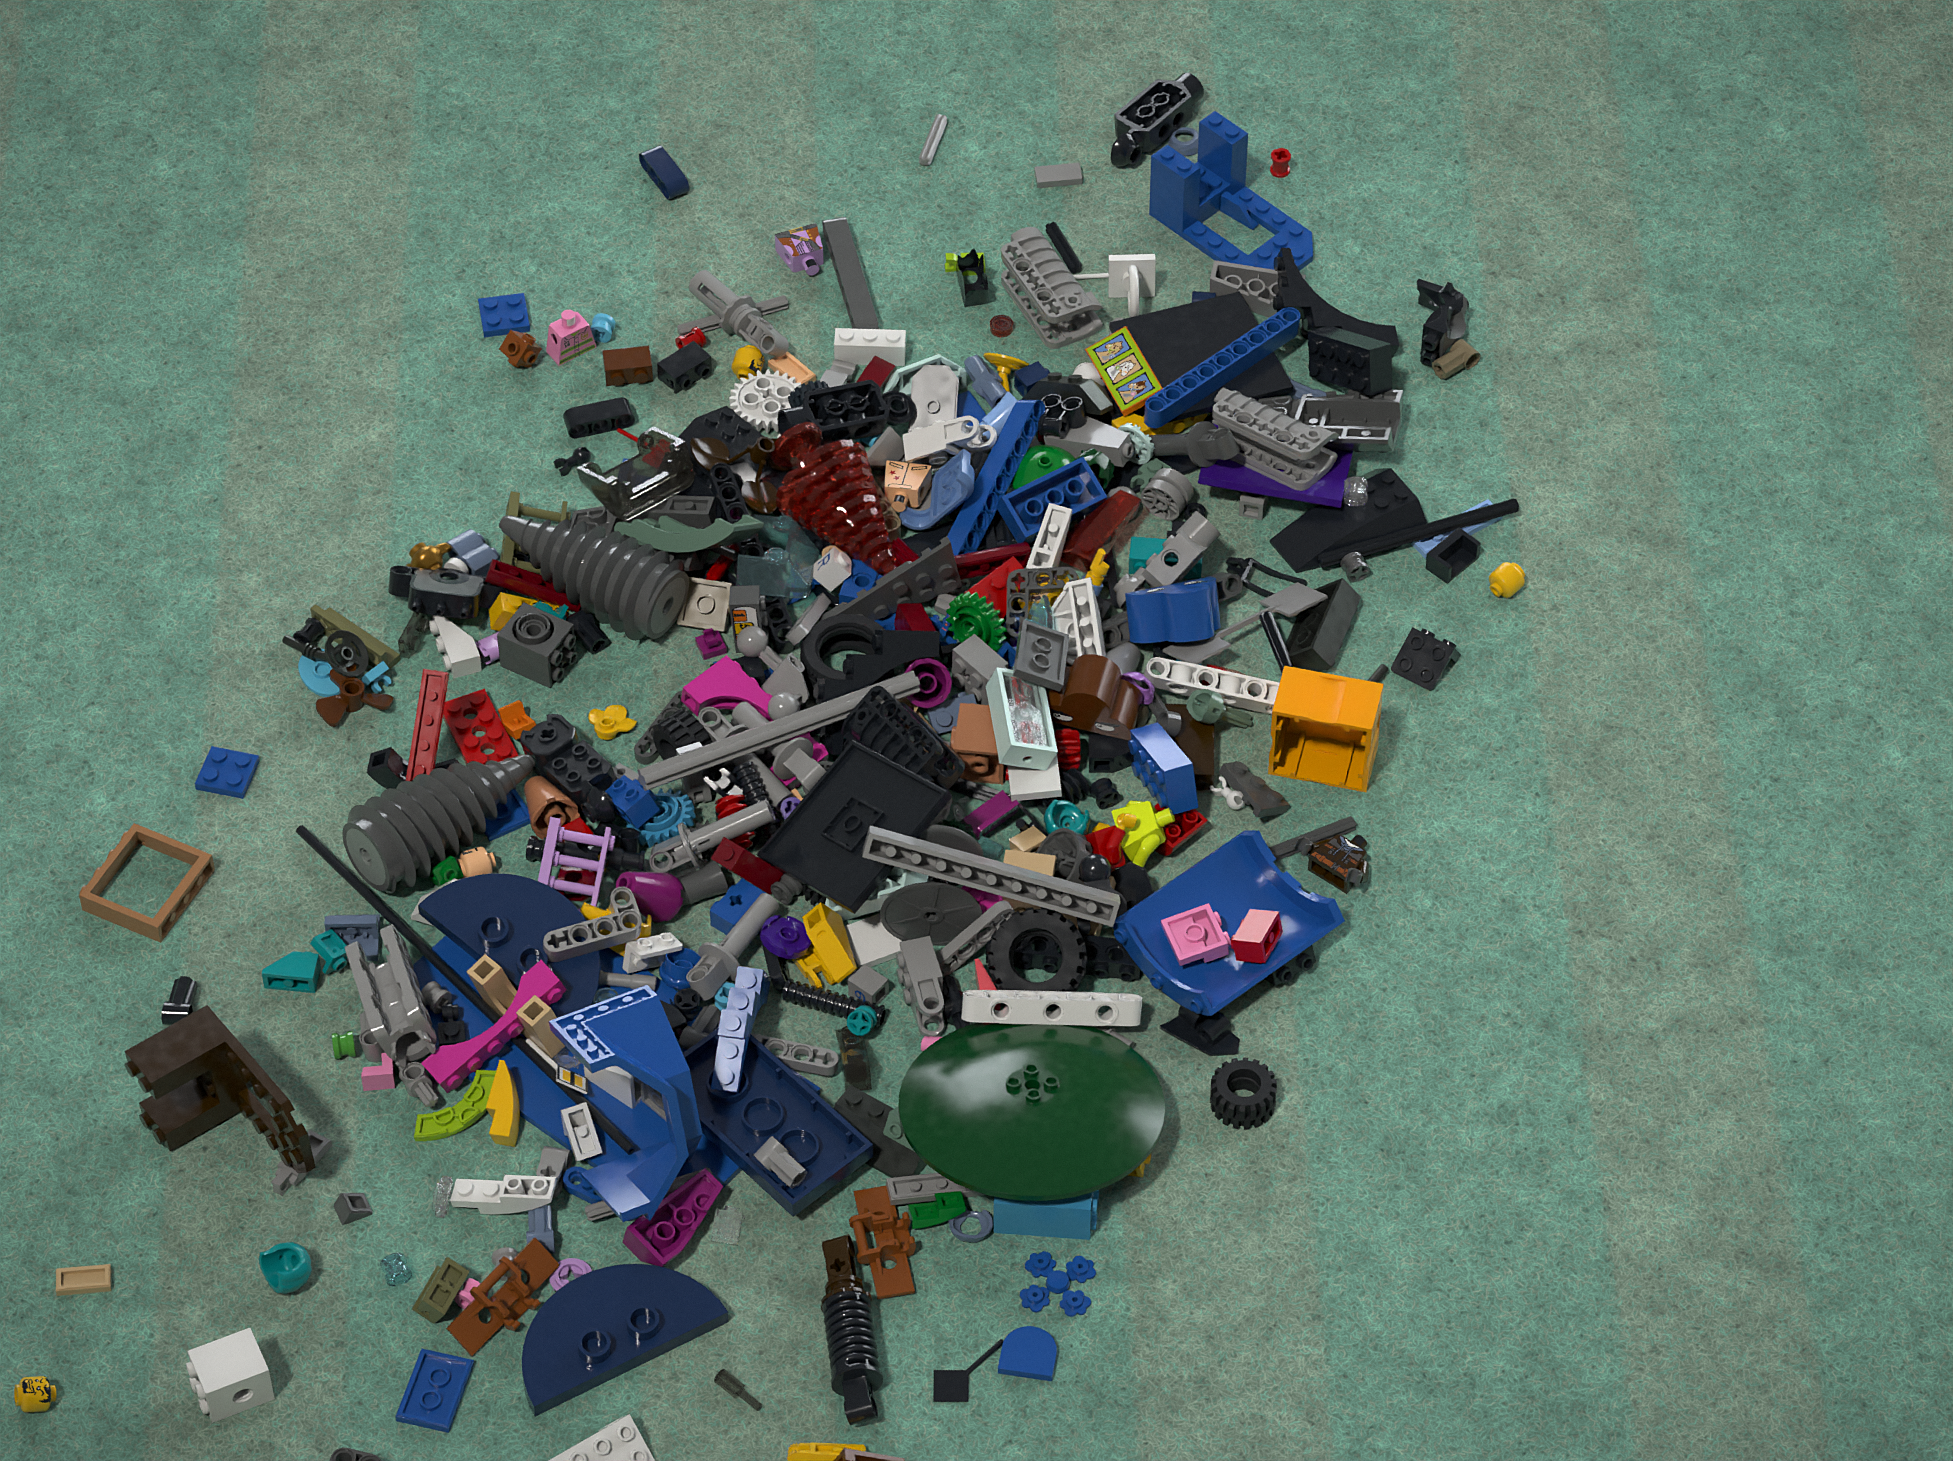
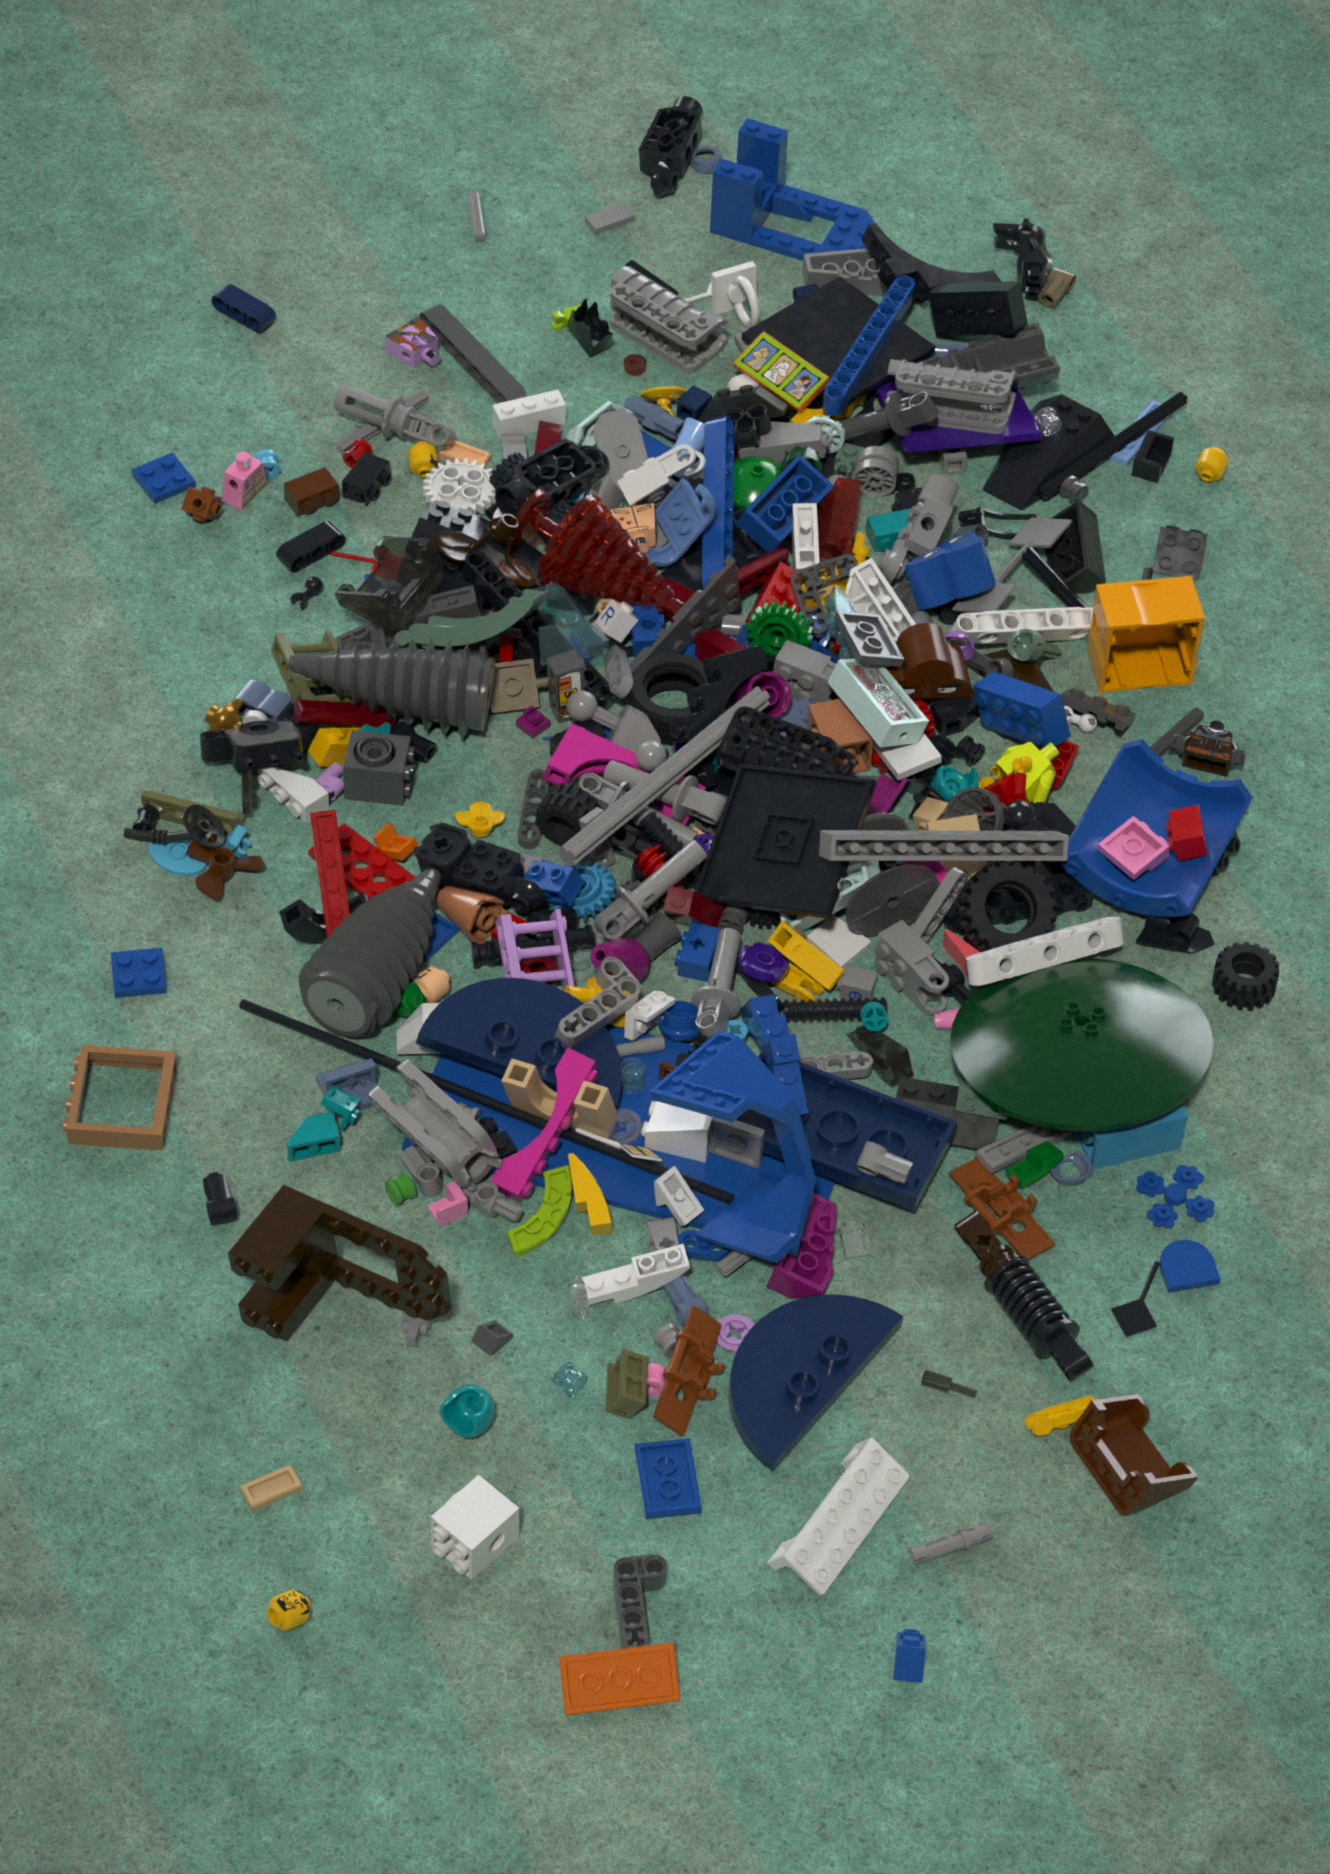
camera: 25 degrees left, 0 degrees up
(1280, 162) = (804, 156): red bush -> none

